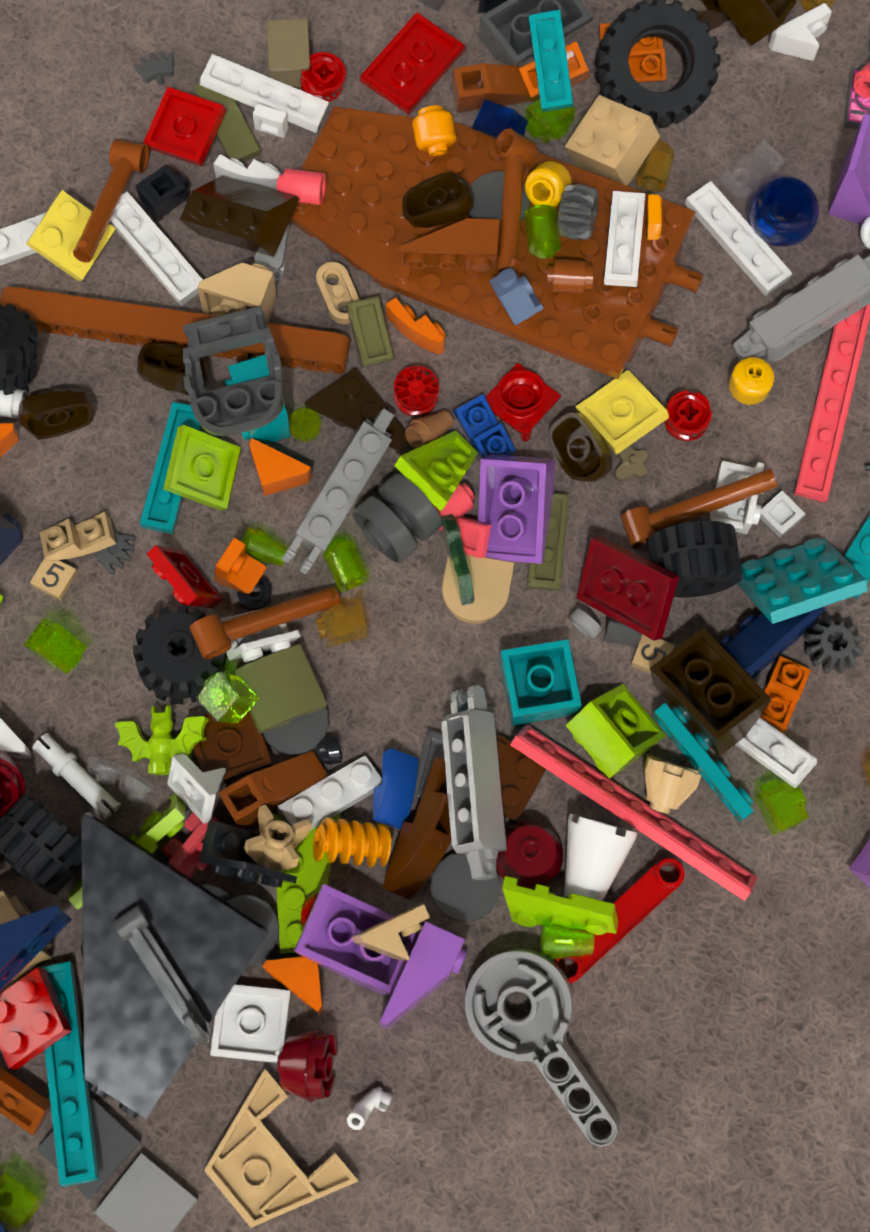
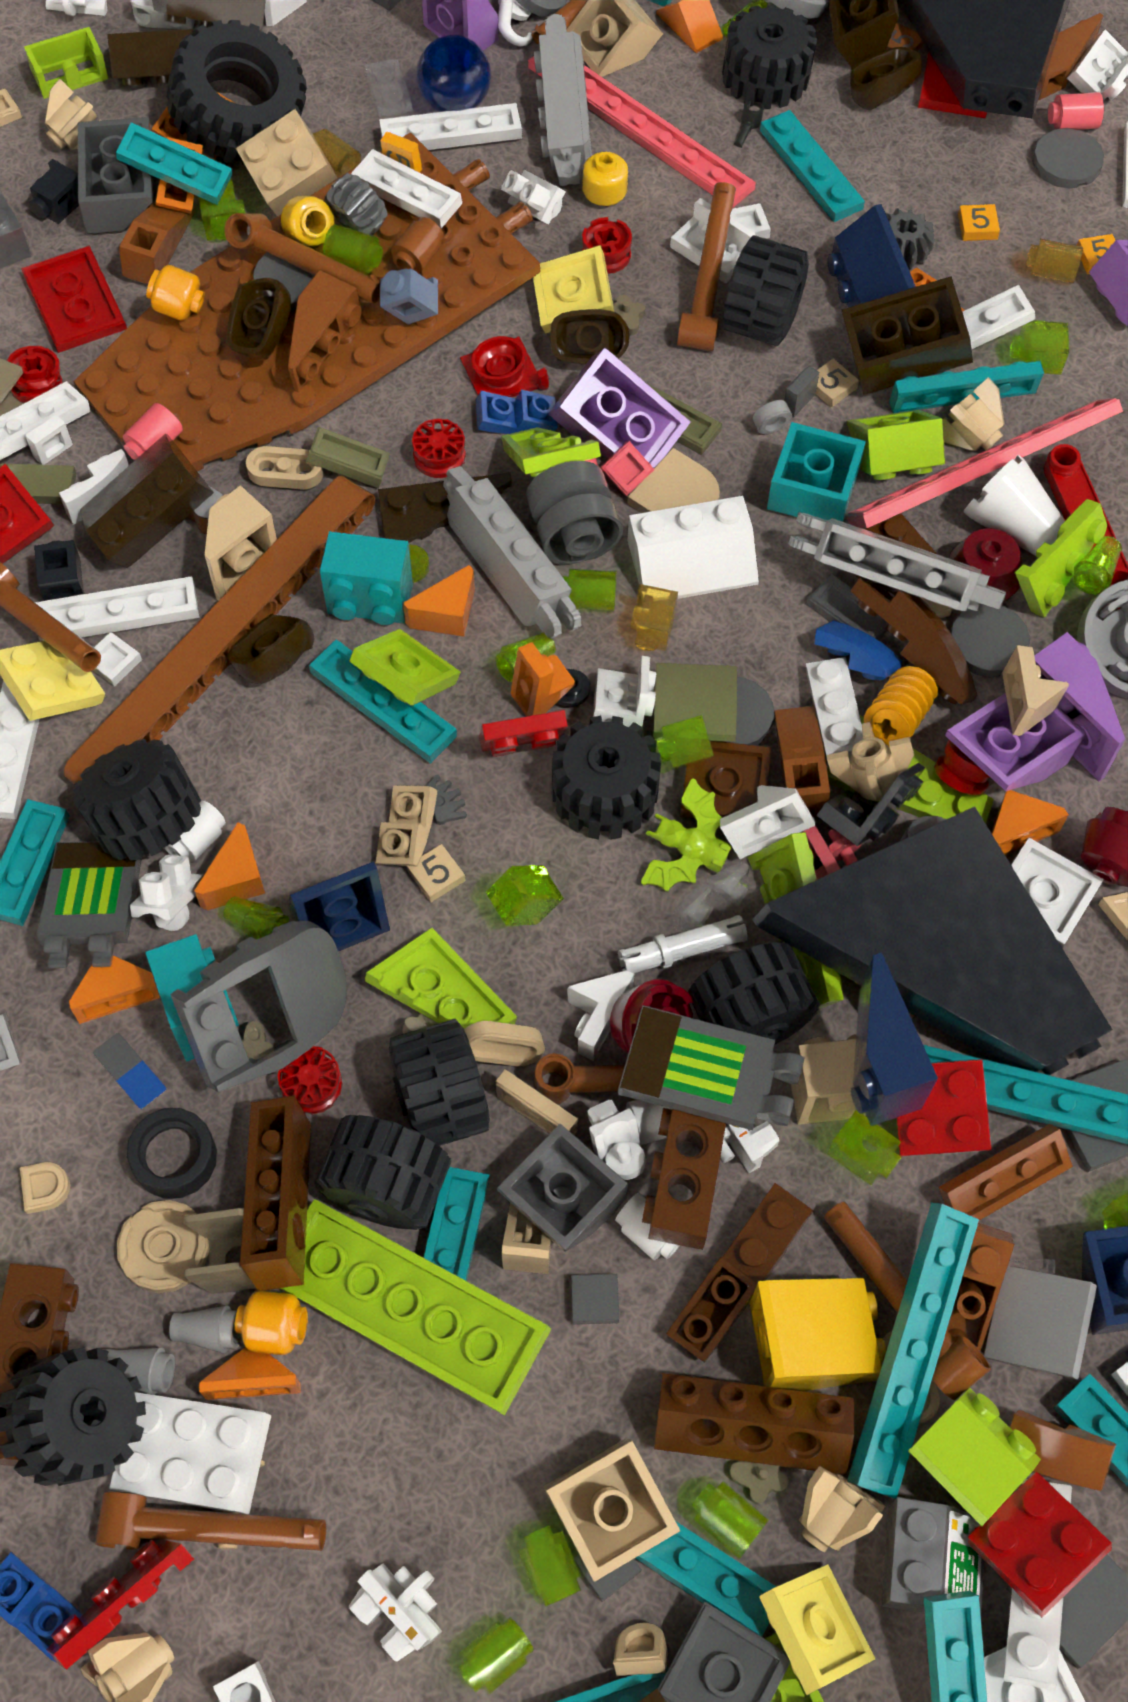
camera: 60 degrees left, 10 degrees down
(55, 412) = (247, 781): dark brown piece -> none
(115, 268) = (116, 659): none -> white tile
(134, 927) = (914, 920): dark grey piece -> none
(215, 636) = (616, 711): dark orange piece -> none
(240, 405) = (377, 573): dark grey slope -> none
(329, 750) = (784, 691): black hinge -> none
(421, 332) = (383, 413): orange slope -> none
(421, 623) = (695, 547): none -> white slope
(428, 428) = (489, 454): medium nougat cone -> none
(457, 559) = (650, 484): clear green tile -> none
(496, 118) = (200, 243): clear blue brick -> none
(627, 587) = (765, 351): dark red plate -> none
(698, 335) = (537, 194): none -> white hips
(800, 580) = (837, 217): teal plate -> none

